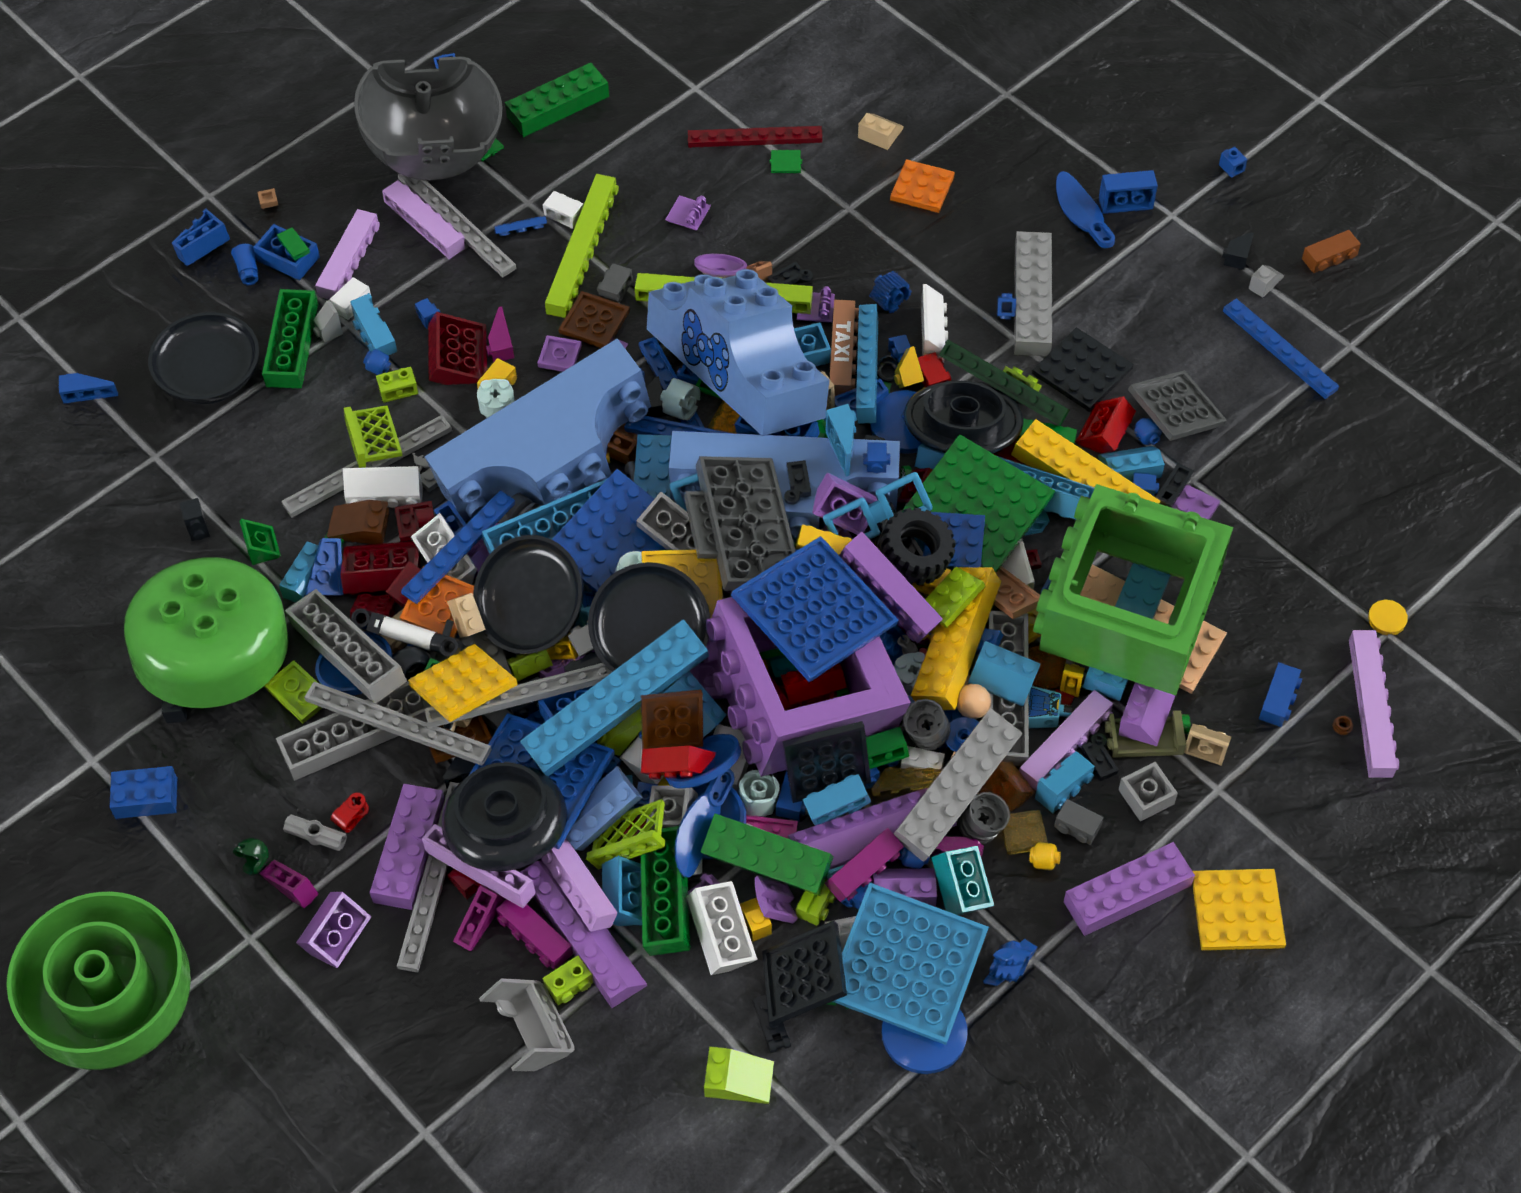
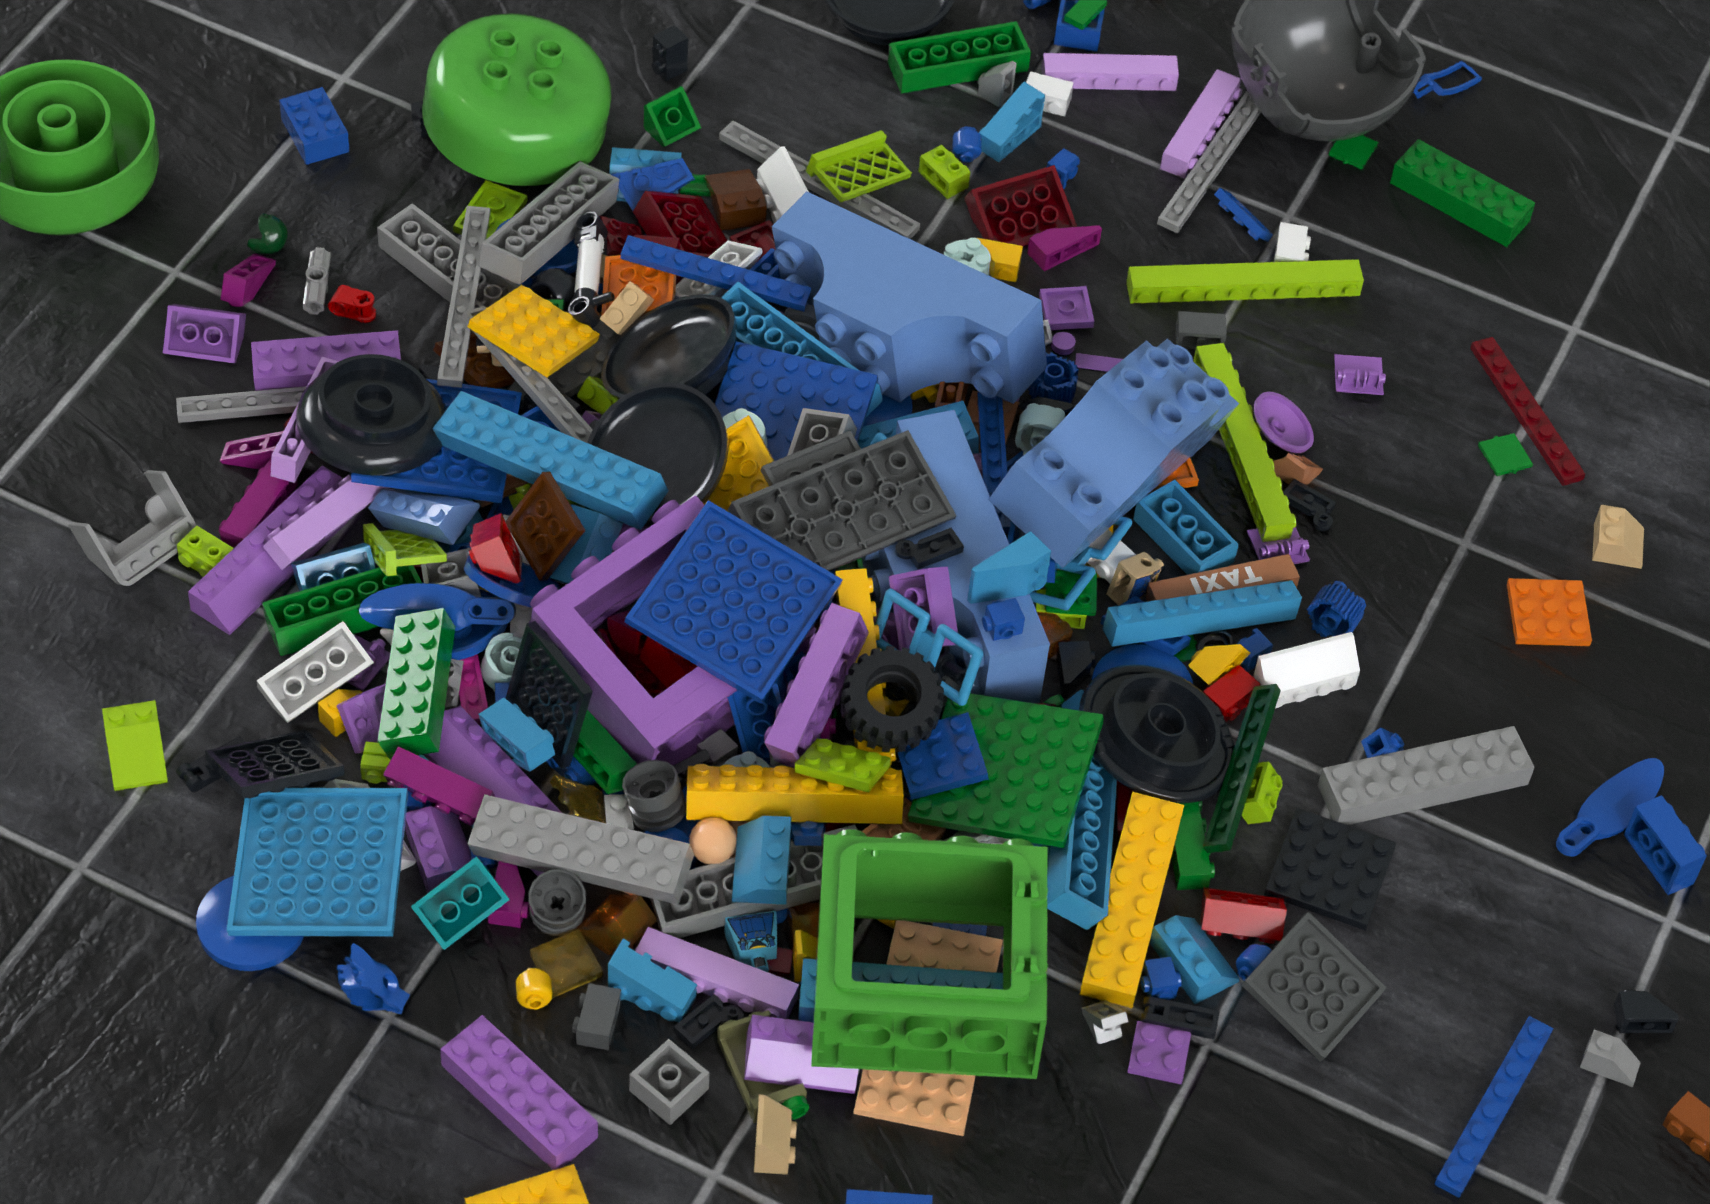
camera: 65 degrees right, 5 degrees down
(594, 320) = (1132, 321): reddish brown plate -> none

